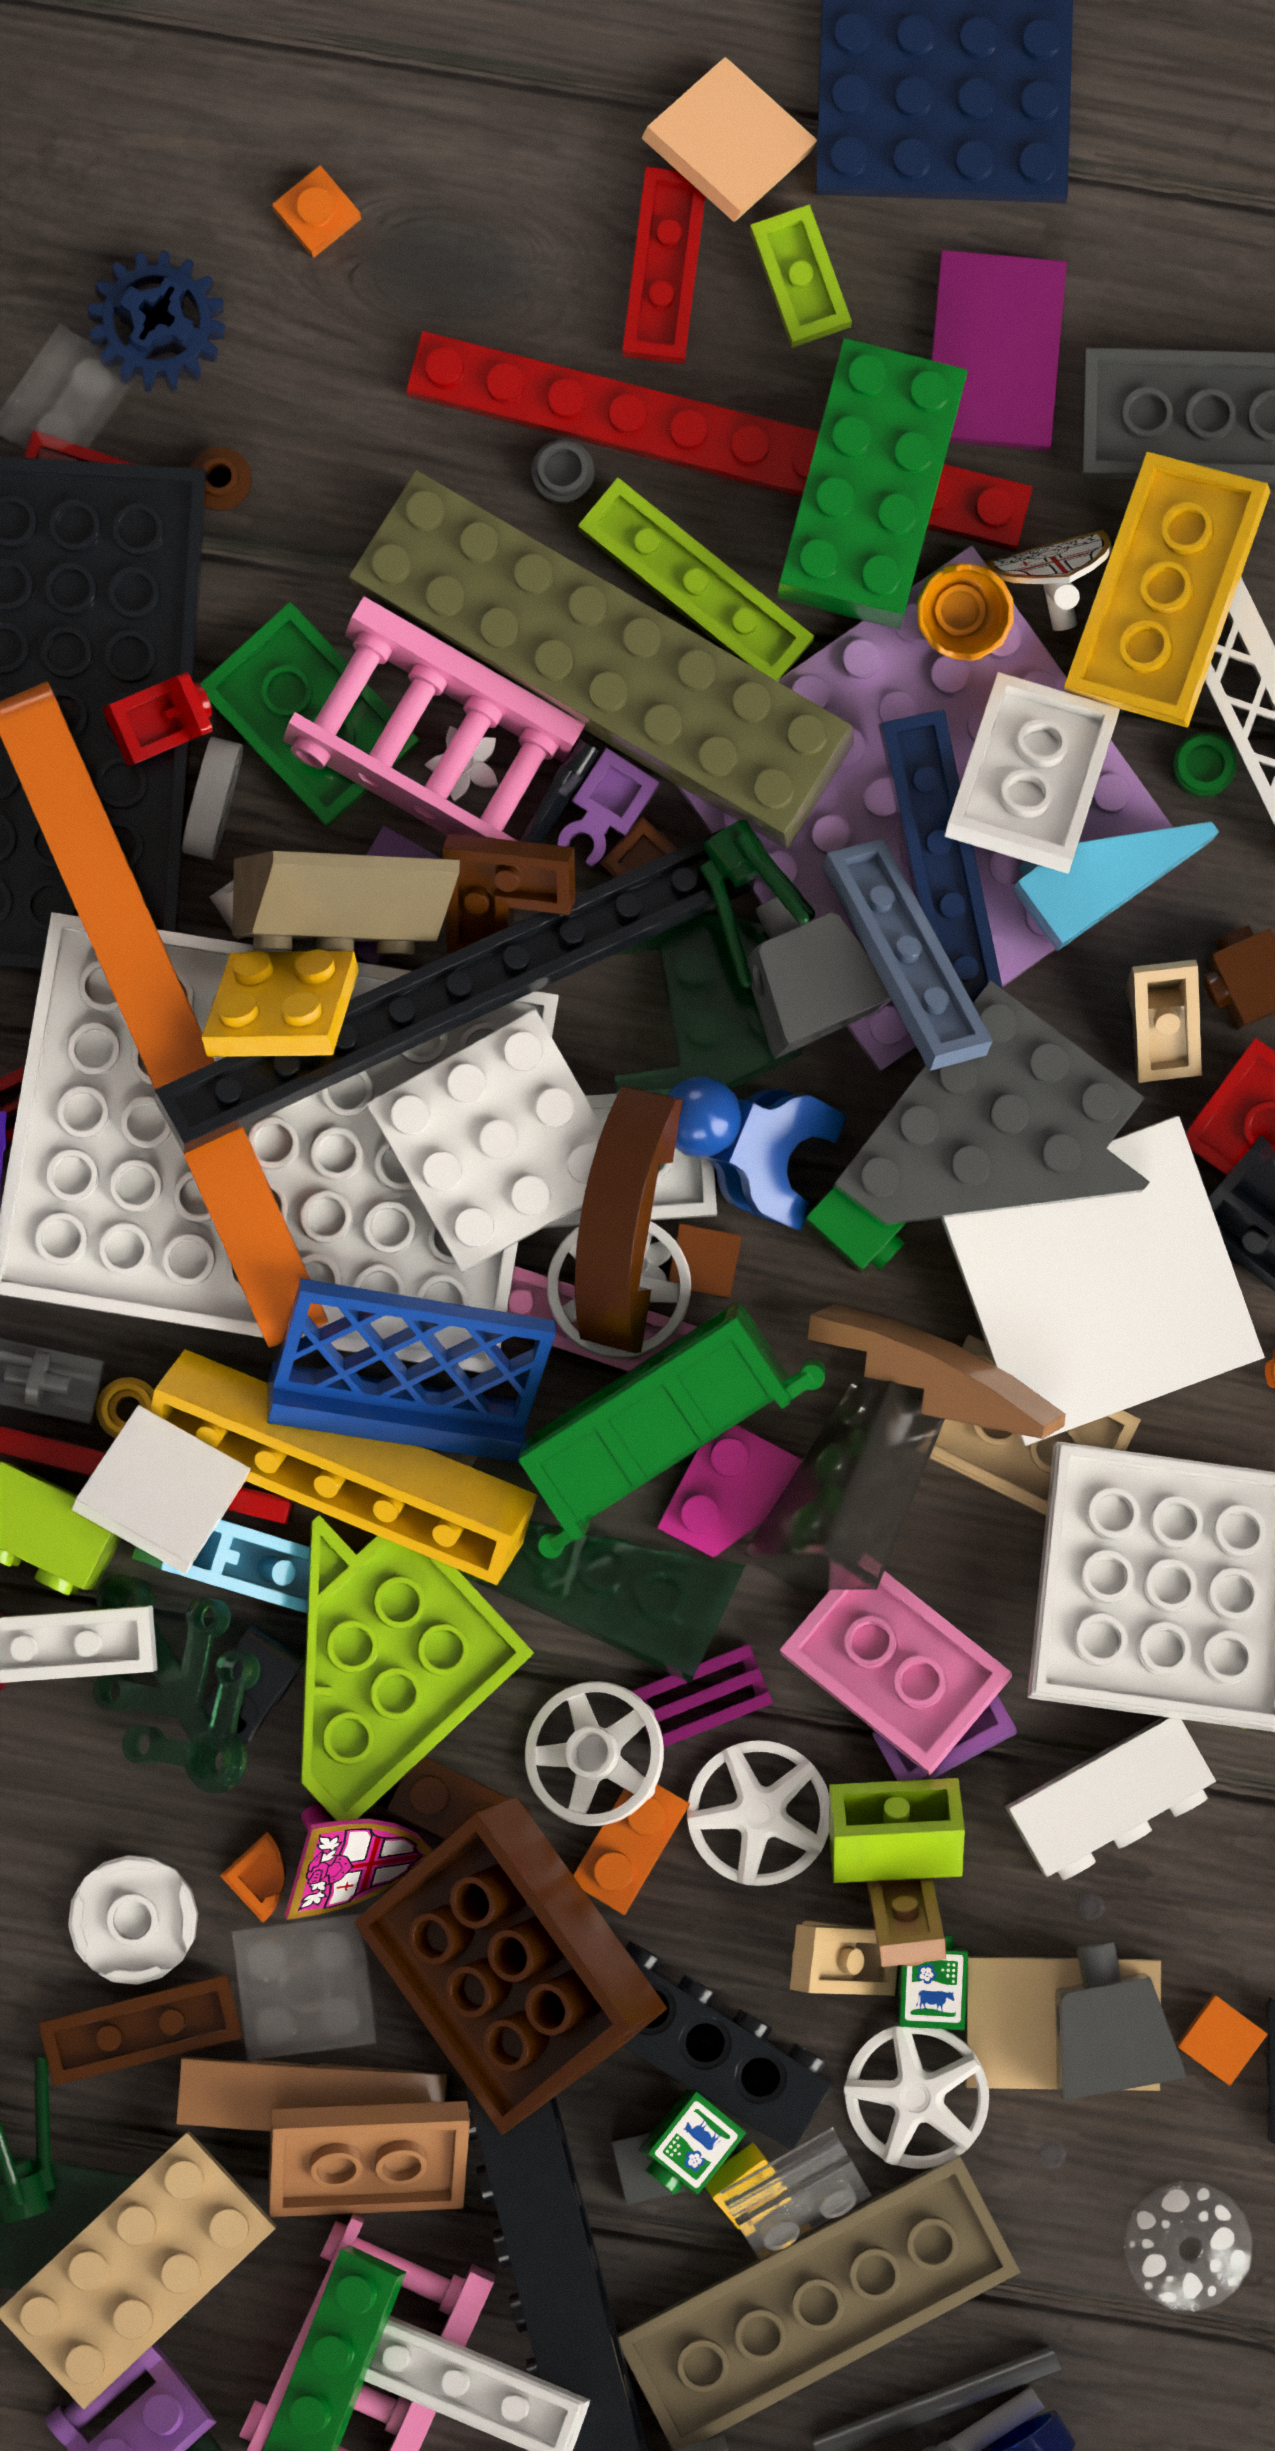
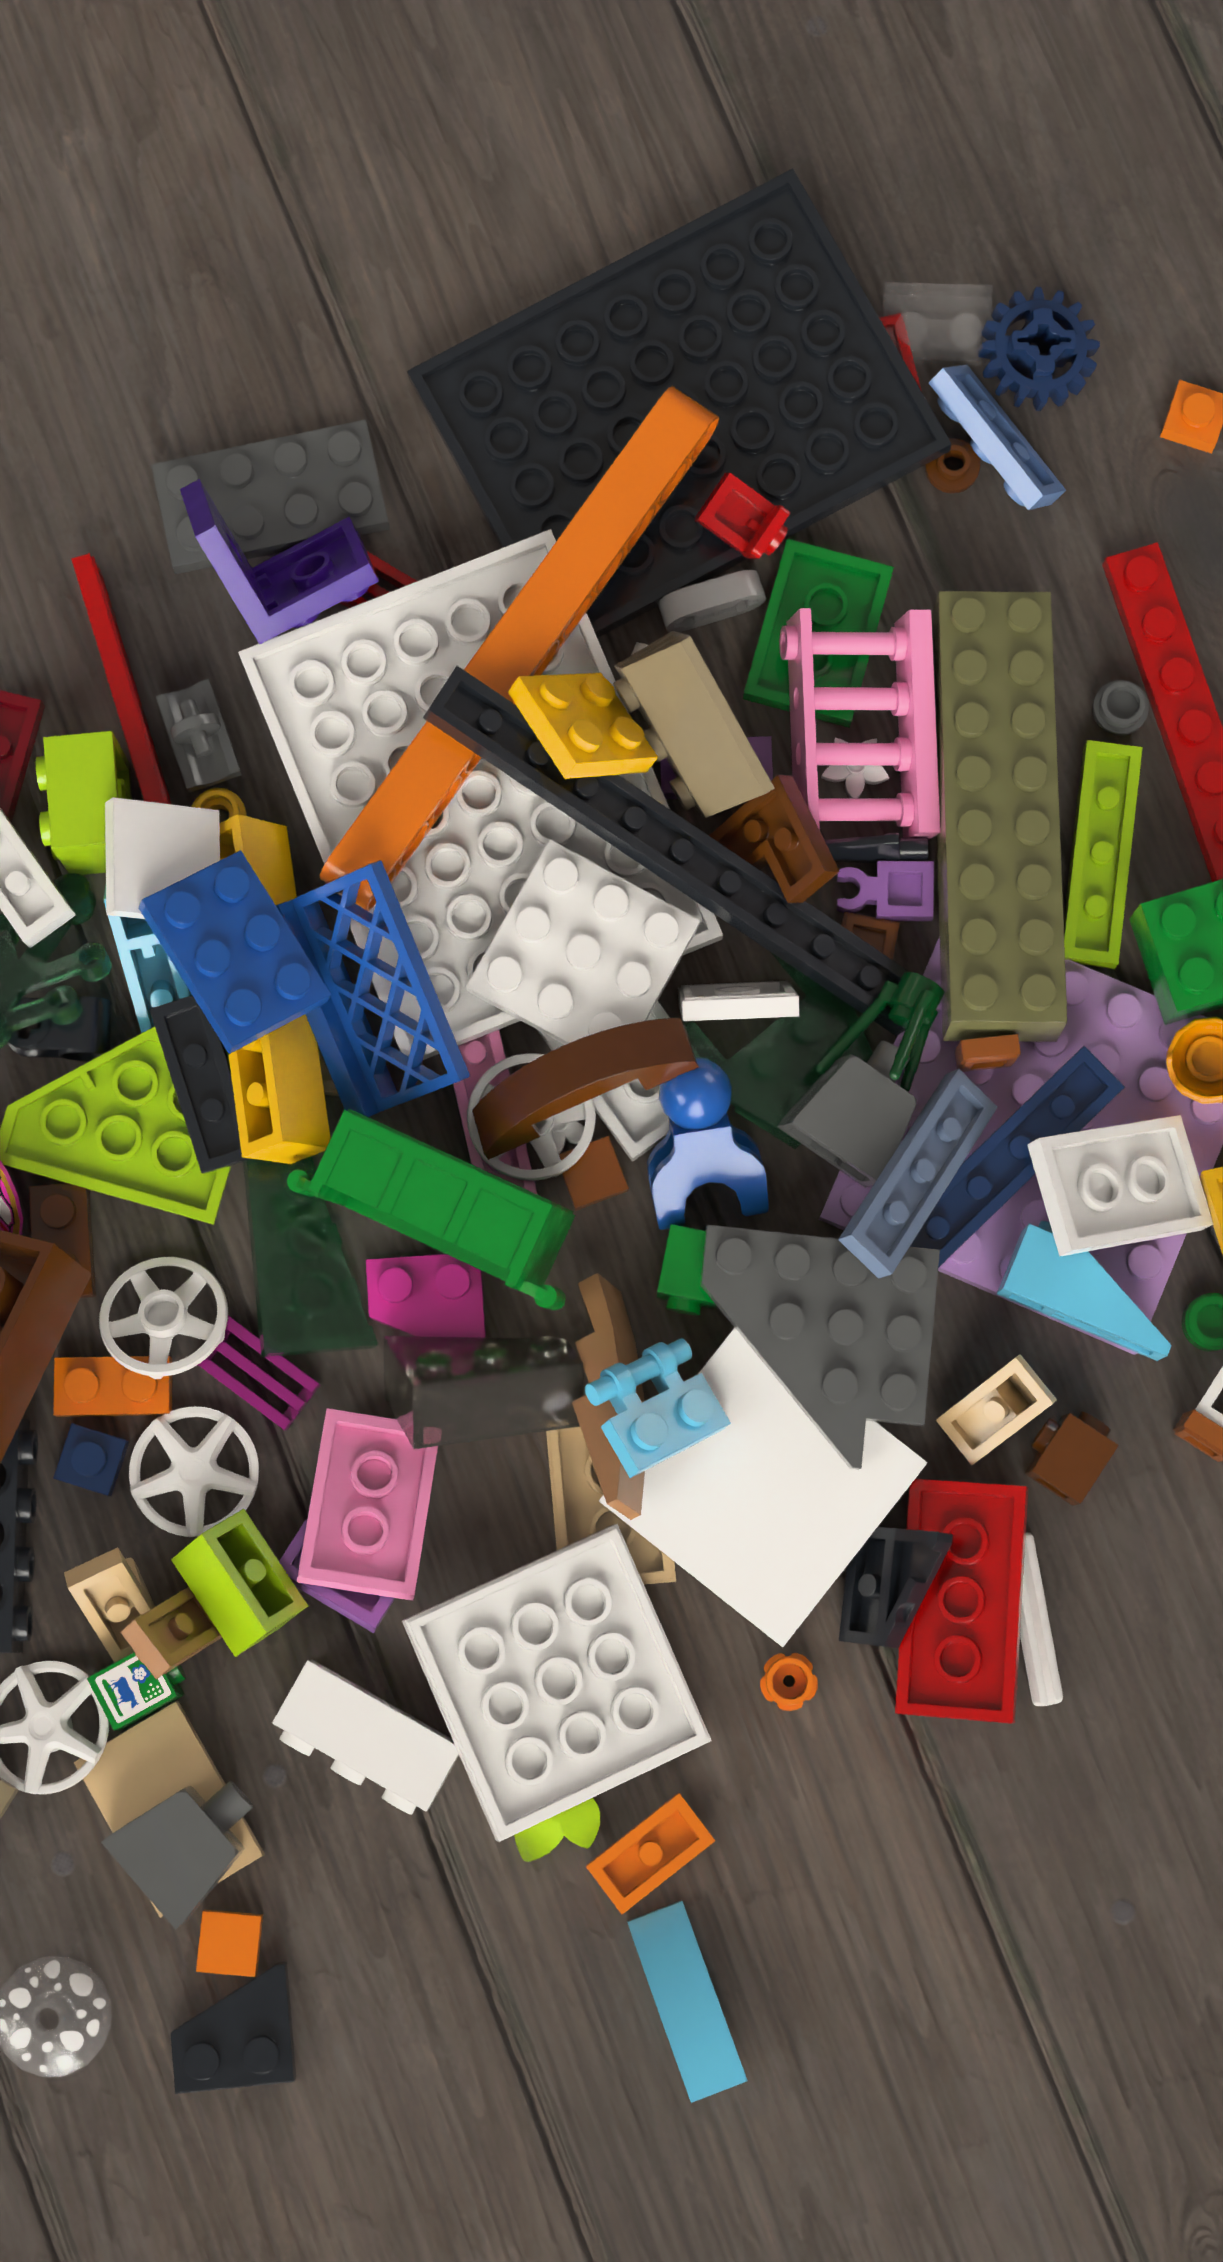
camera: 60 degrees right, 5 degrees down
(220, 419) = (996, 437): none -> medium blue plate
(297, 1472) = (234, 951): none -> blue plate
(393, 1580) = (200, 1081): none -> black plate
(630, 1020) = (738, 1001): none -> white tile
(688, 1904) = (91, 1459): none -> dark blue plate
(827, 816) = (987, 1053): none -> dark orange tile
(998, 1337) = (664, 1424): none -> medium azure plate

